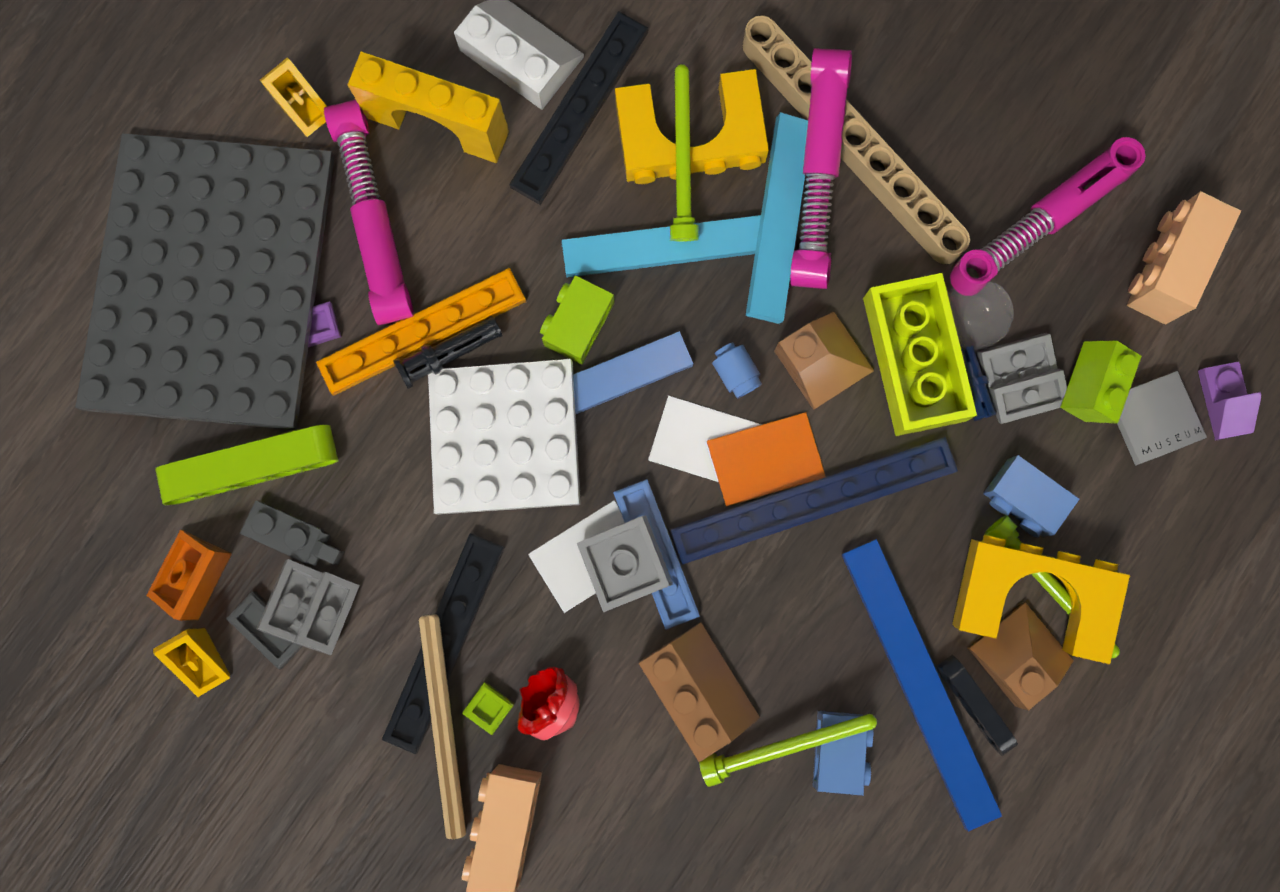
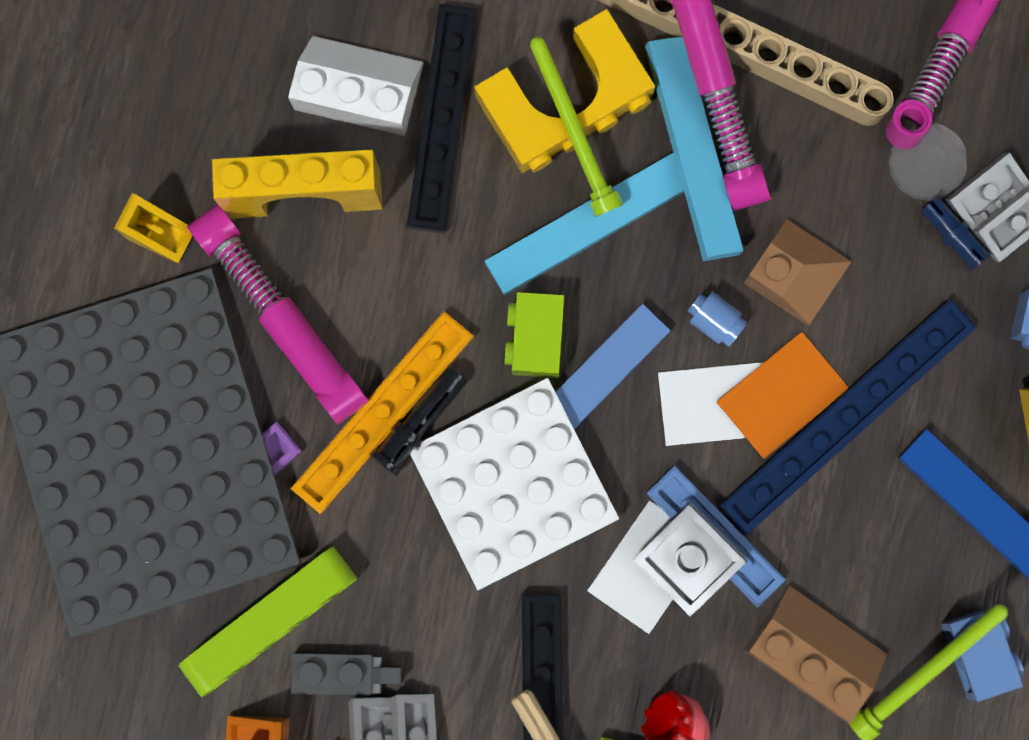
camera: 20 degrees left, 0 degrees up
(919, 354) = (890, 228): neon yellow brick -> none

